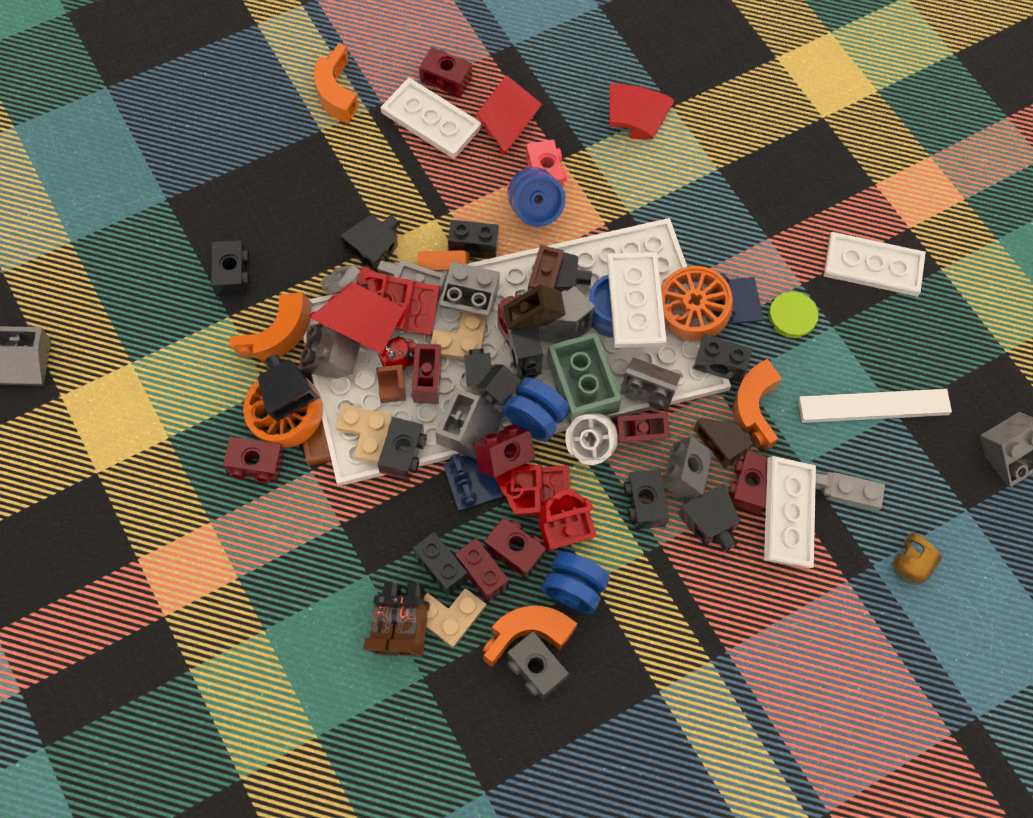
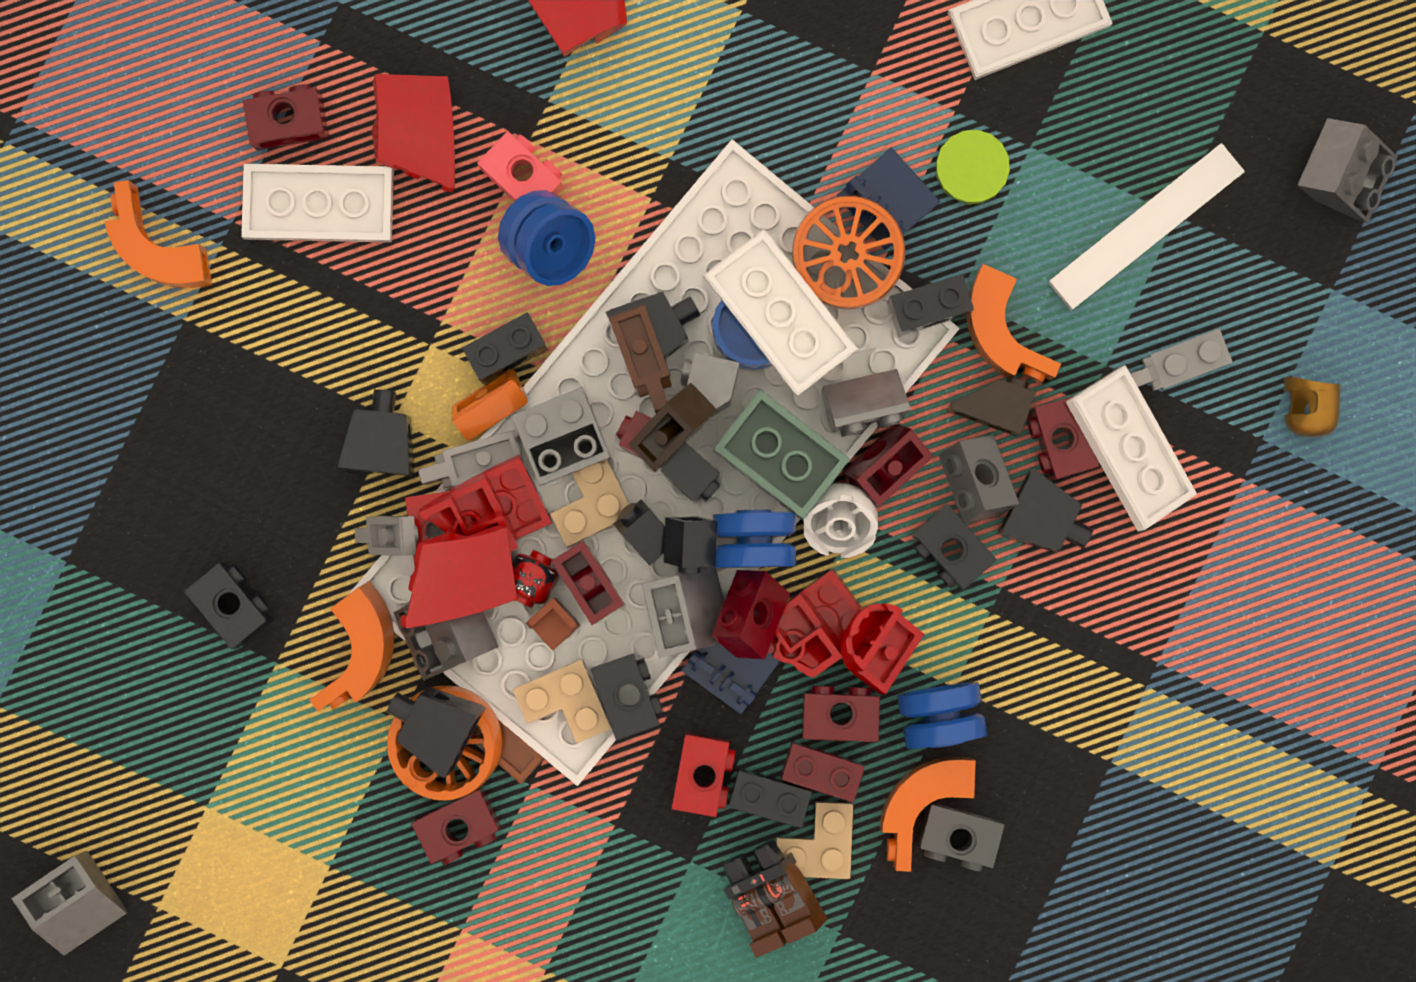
camera: 30 degrees left, 20 degrees up
(415, 511) = (689, 794): none -> red brick

